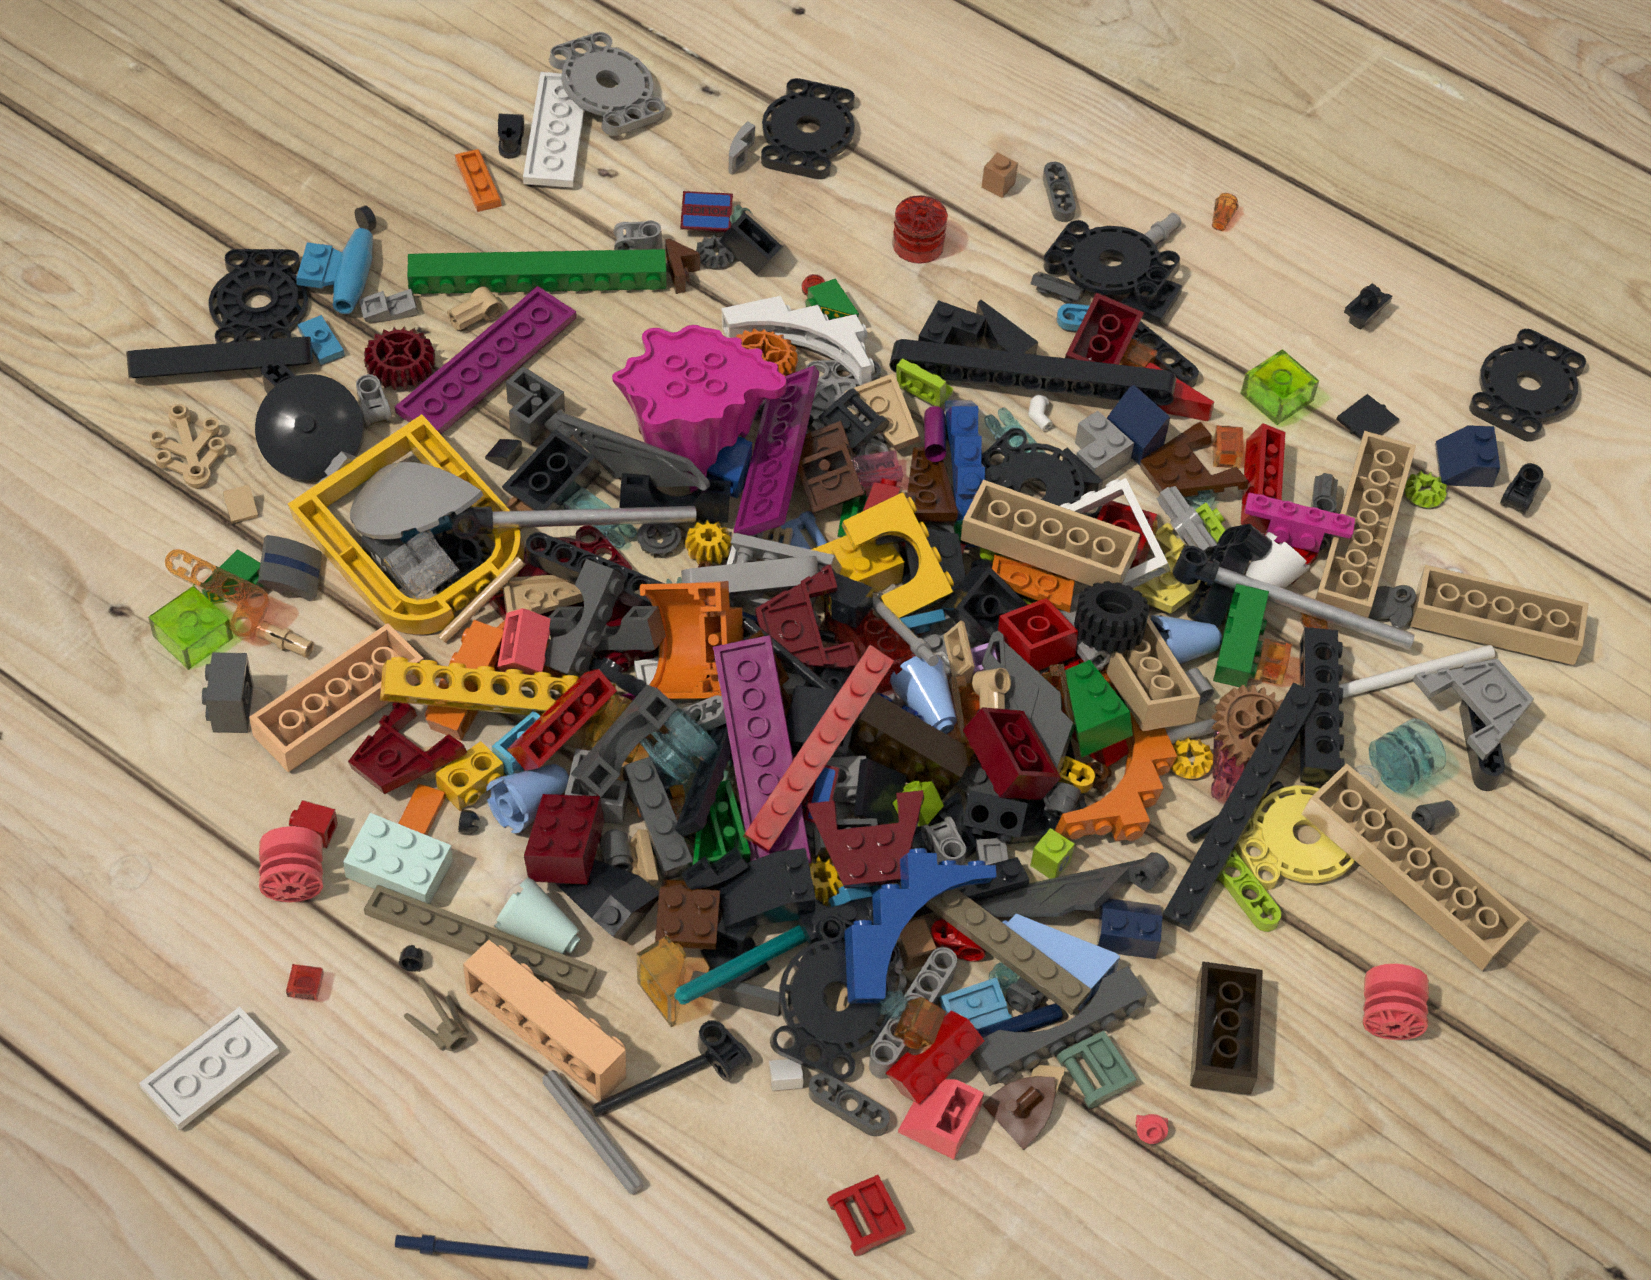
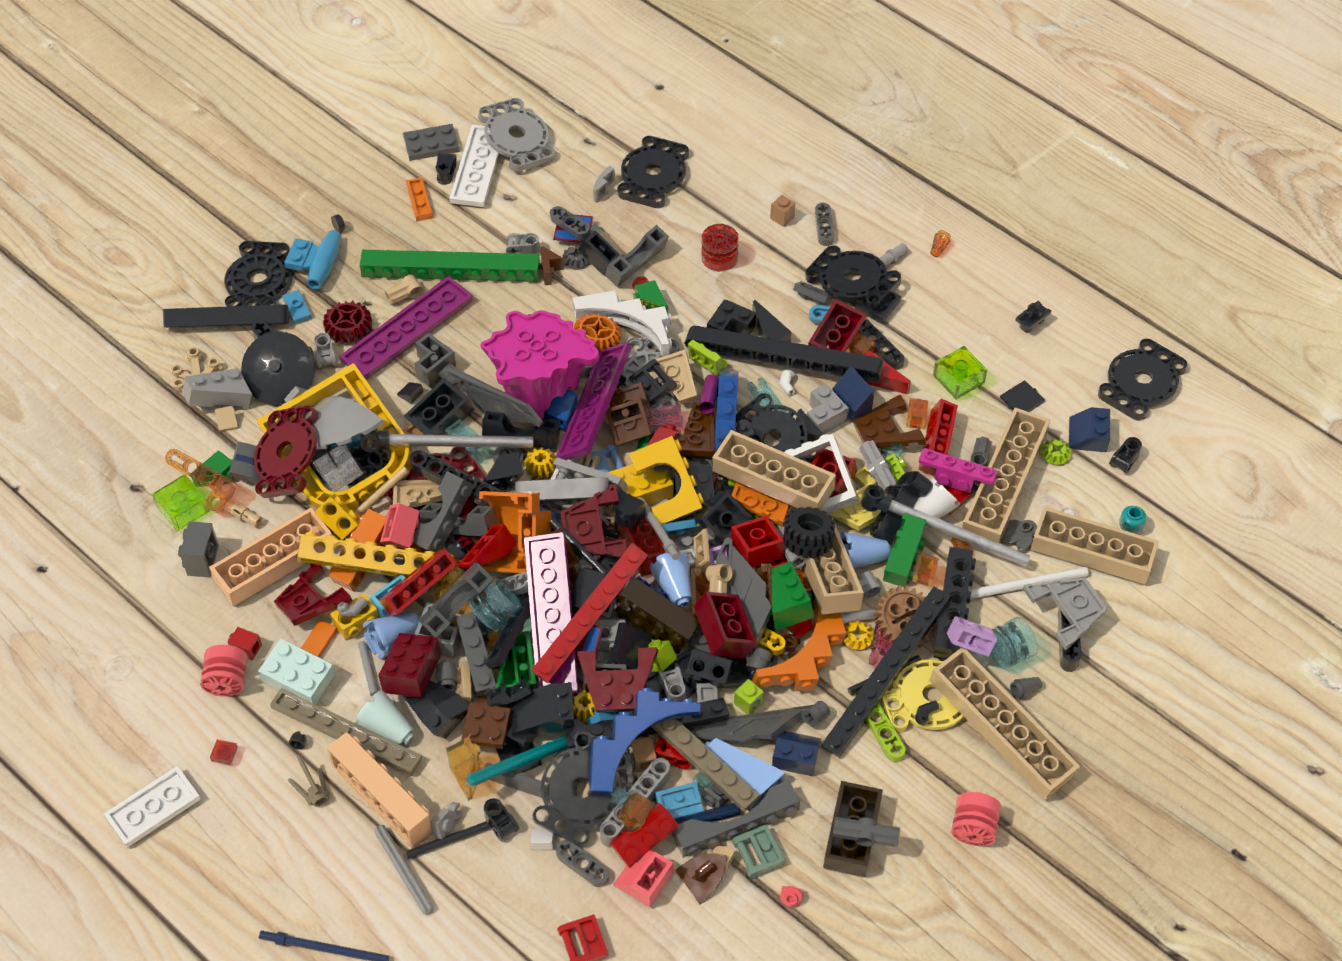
camera: 10 degrees right, 0 degrees up
(224, 460) = (217, 388): none -> light grey wedge
(350, 568) = (268, 451): none -> dark red piece
(382, 308) = (340, 286): light grey slope -> none
(422, 638) = (334, 520): none -> yellow brick
(465, 821) = (347, 648): black hinge -> none
(468, 766) = (352, 610): none -> light grey arm
(483, 99) = (430, 142): none -> dark grey plate
(499, 848) = (367, 667): none -> light grey bar
(643, 1058) = (444, 820): none -> light grey plate
(662, 662) = (492, 545): none -> red slope
(663, 556) = (505, 471): none -> black slope
(698, 195) = (567, 216): none -> dark grey beam
(805, 247) = (647, 248): none -> dark grey arch
(1250, 1030) = (866, 832): none -> dark grey piece
(1299, 858) = (924, 710): none -> black arm
(1356, 748) = (971, 636): none -> lavender brick
(1546, 575) = (1132, 519): none -> teal head

